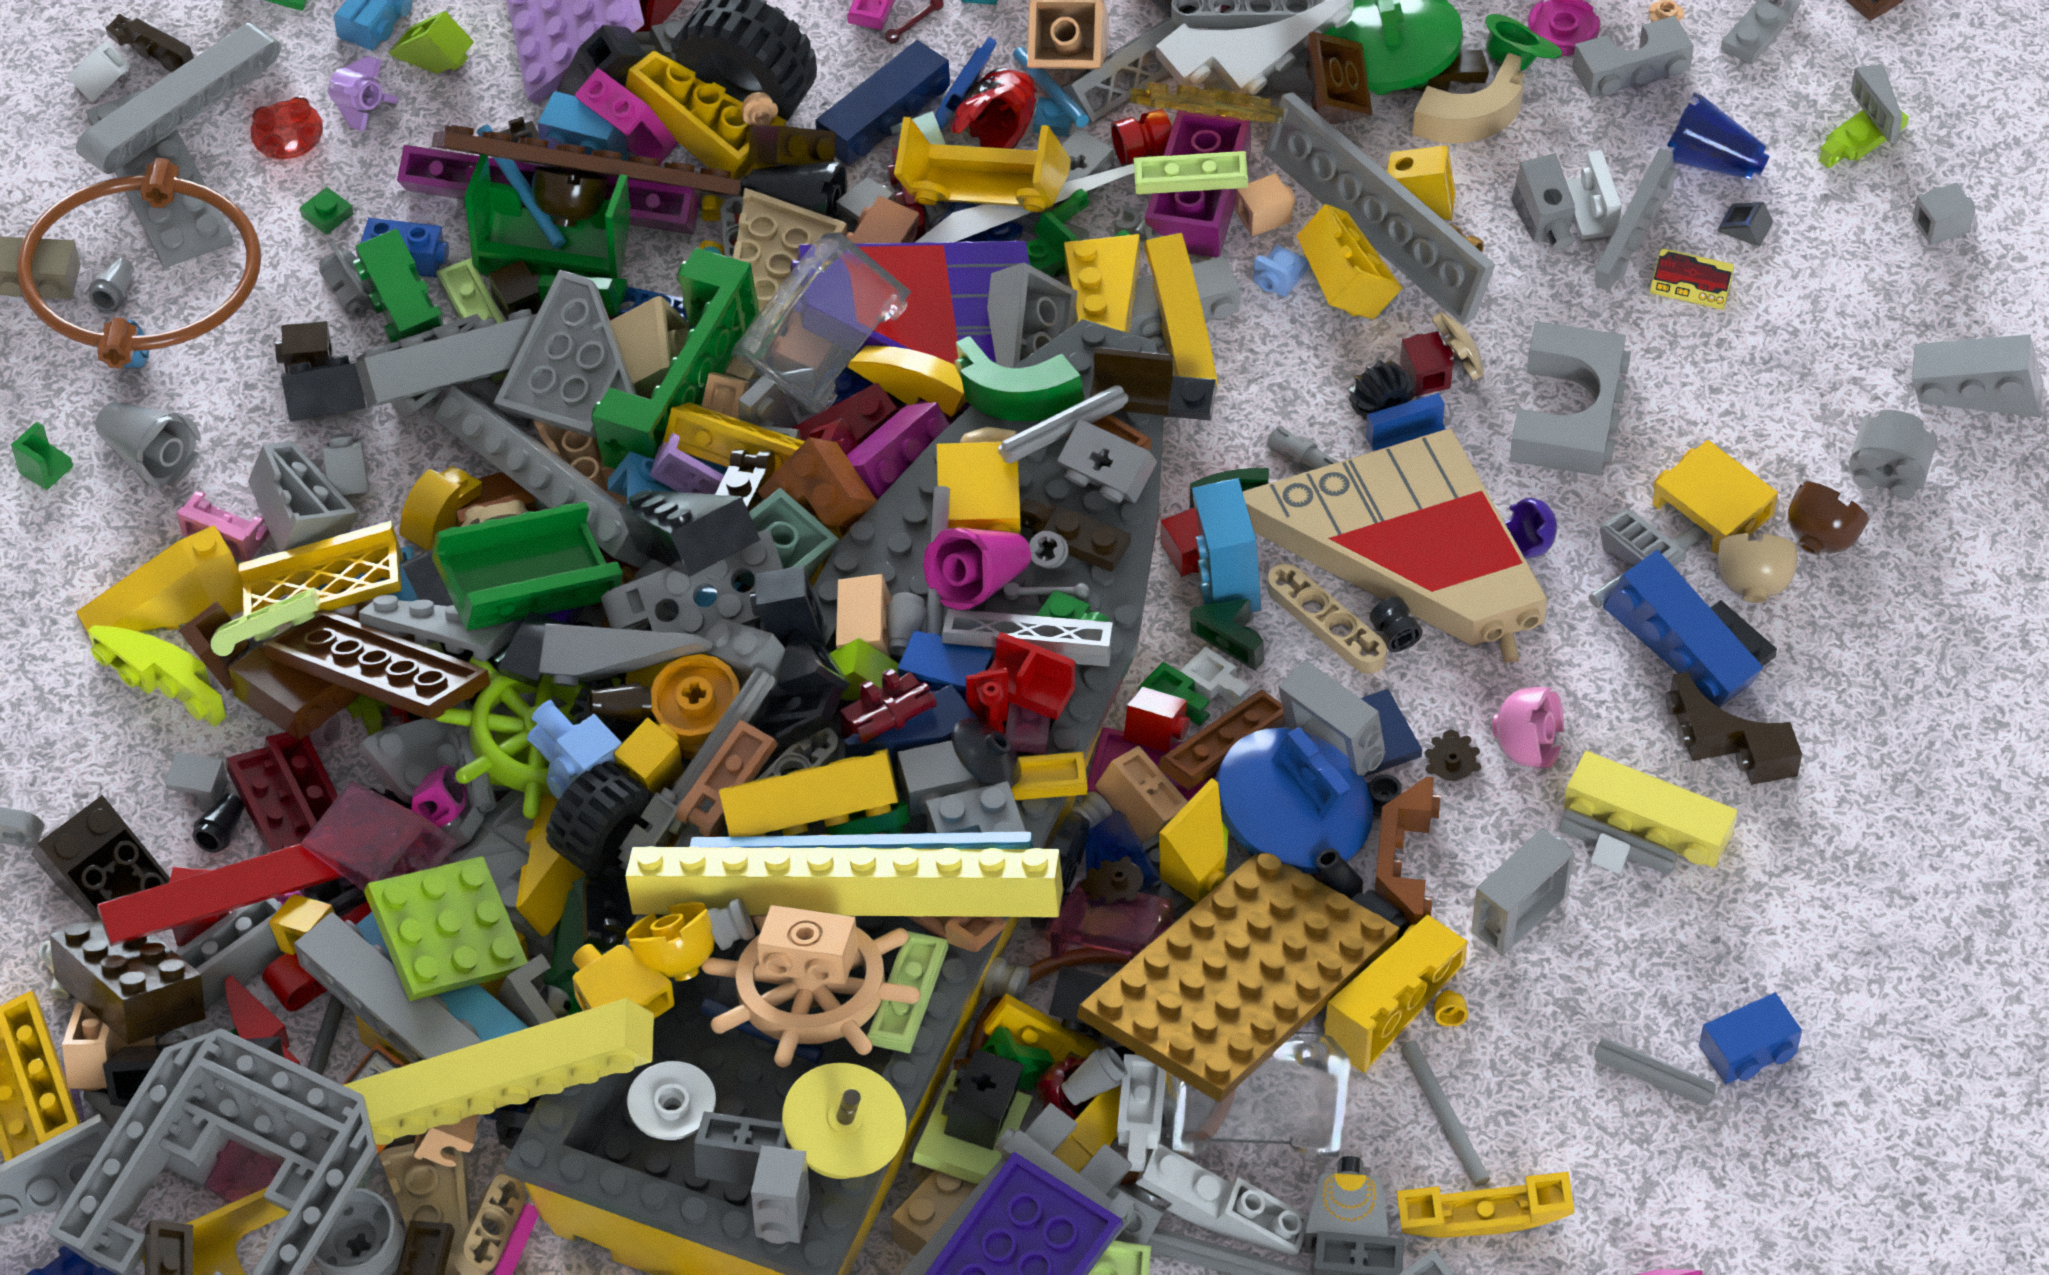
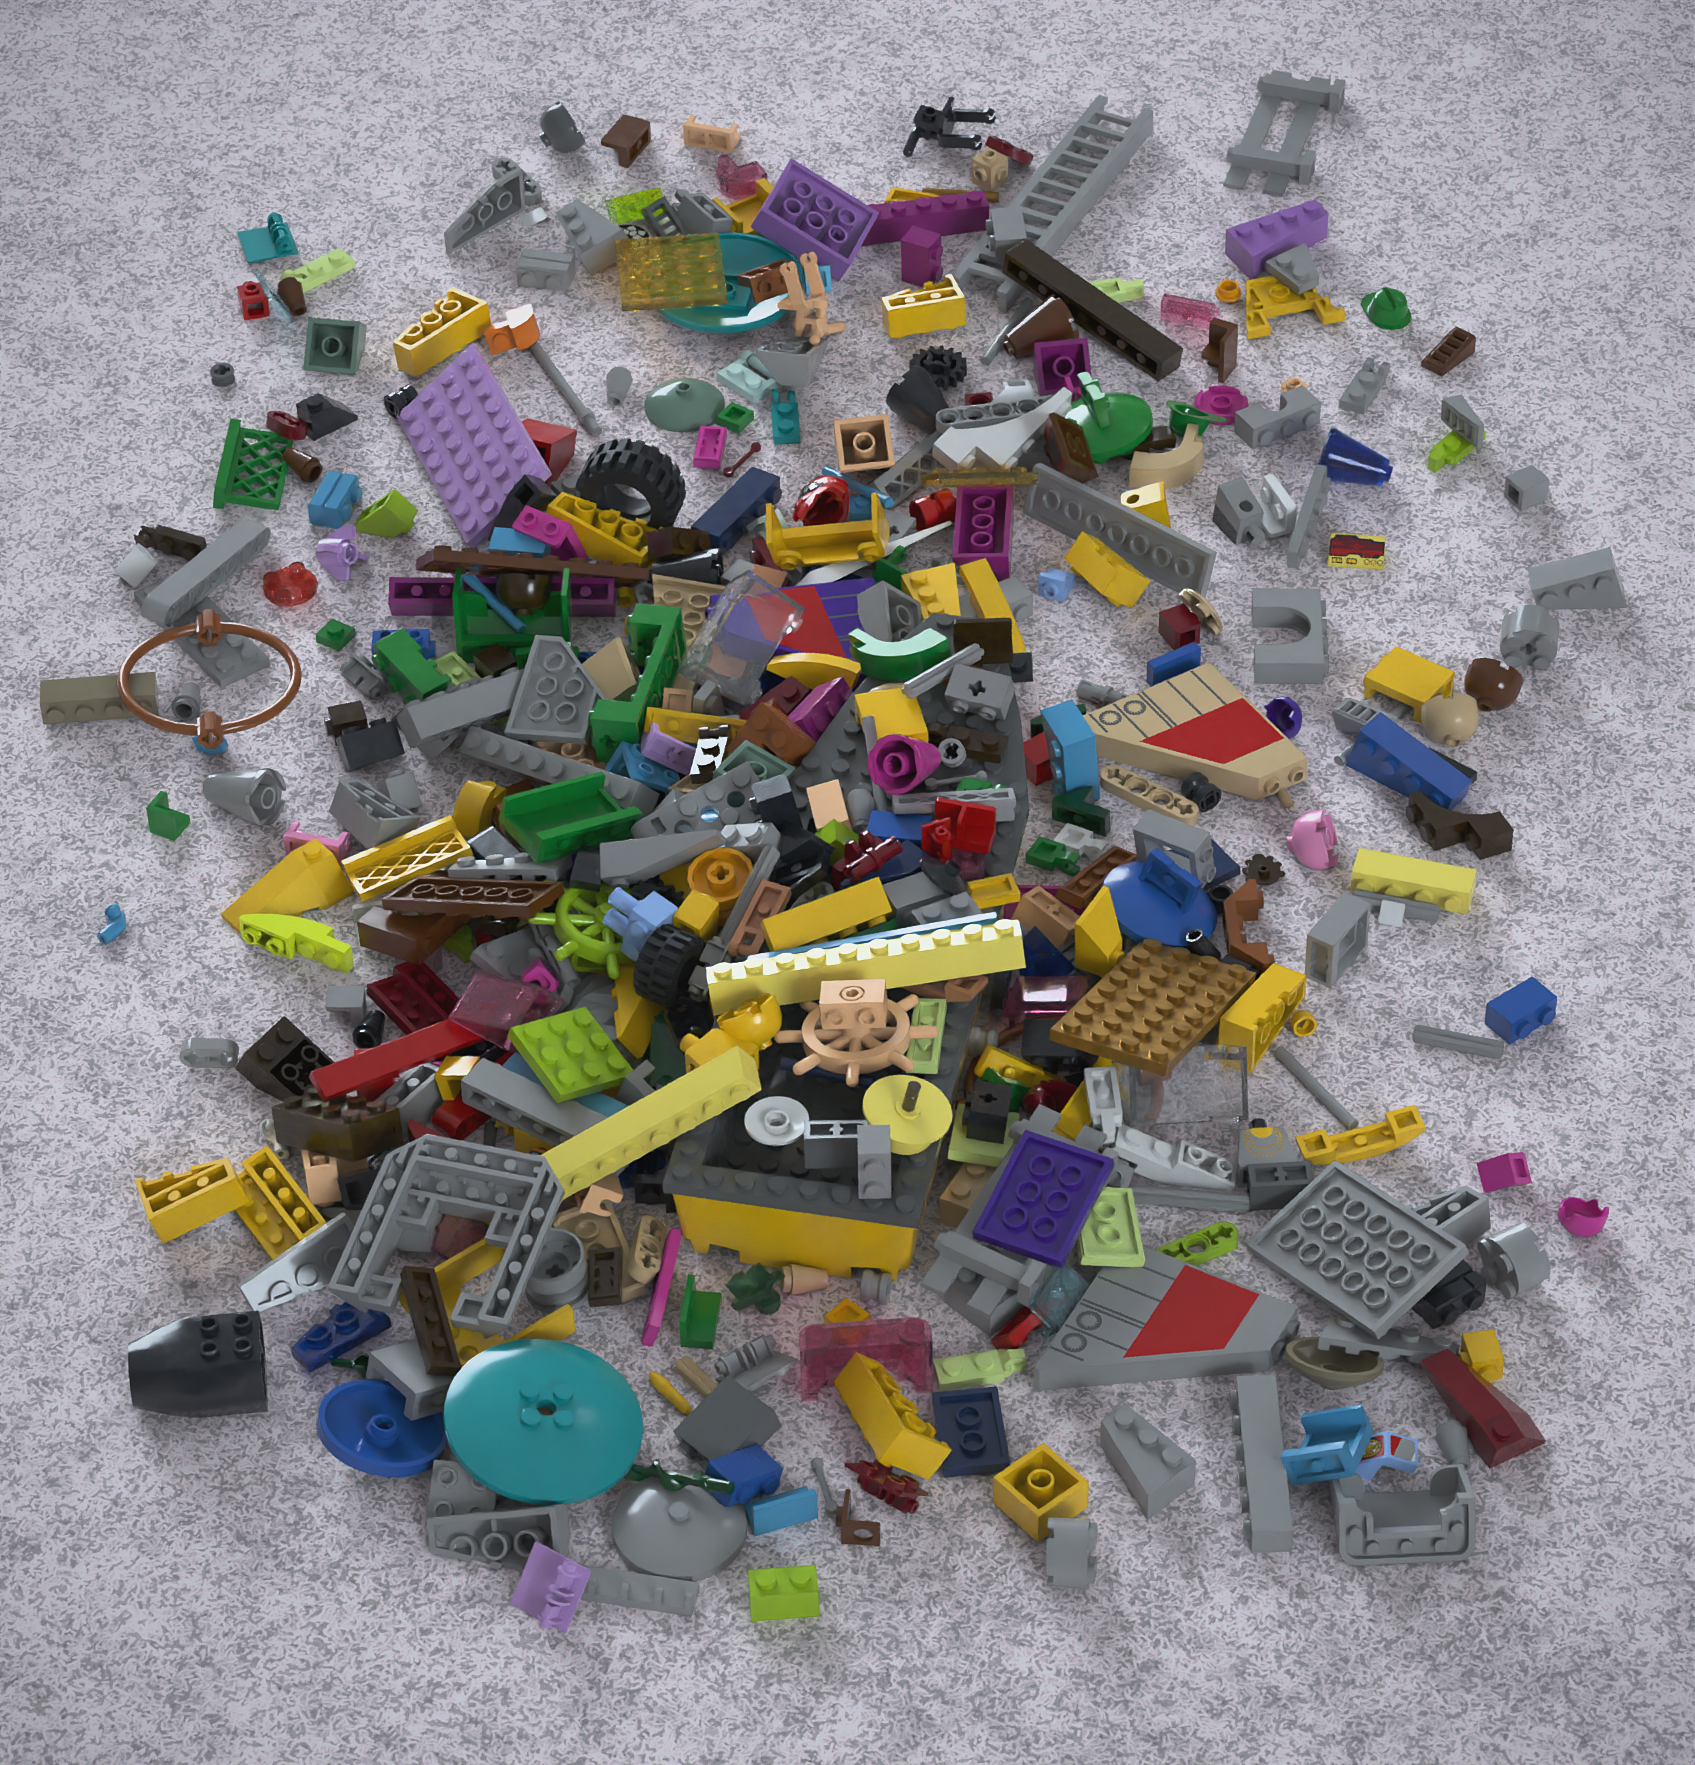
camera: 10 degrees left, 10 degrees down
(199, 635) = (339, 911): reddish brown panel -> none
(264, 621) = (377, 887): yellowish green plate -> none
(622, 702) = (671, 886): dark brown cone -> none
(688, 528) = (686, 770): black wedge -> none
(731, 924) = (791, 1005): light grey wheel -> none
(758, 109) = (646, 517): light nougat plate -> none
(968, 75) = (796, 485): blue tile -> none
(1095, 1075) = (1066, 1084): light grey cone -> none
(1113, 881) = (1044, 970): dark brown piece -> none
(1156, 719) = (1045, 870): red brick -> none
(1190, 172) = (979, 523): yellowish green tile -> none
(1264, 204) = (1034, 543): light nougat brick -> none
(1380, 388) = (1150, 644): black gear -> none
(1747, 222) = (1386, 512): dark grey slope -> none

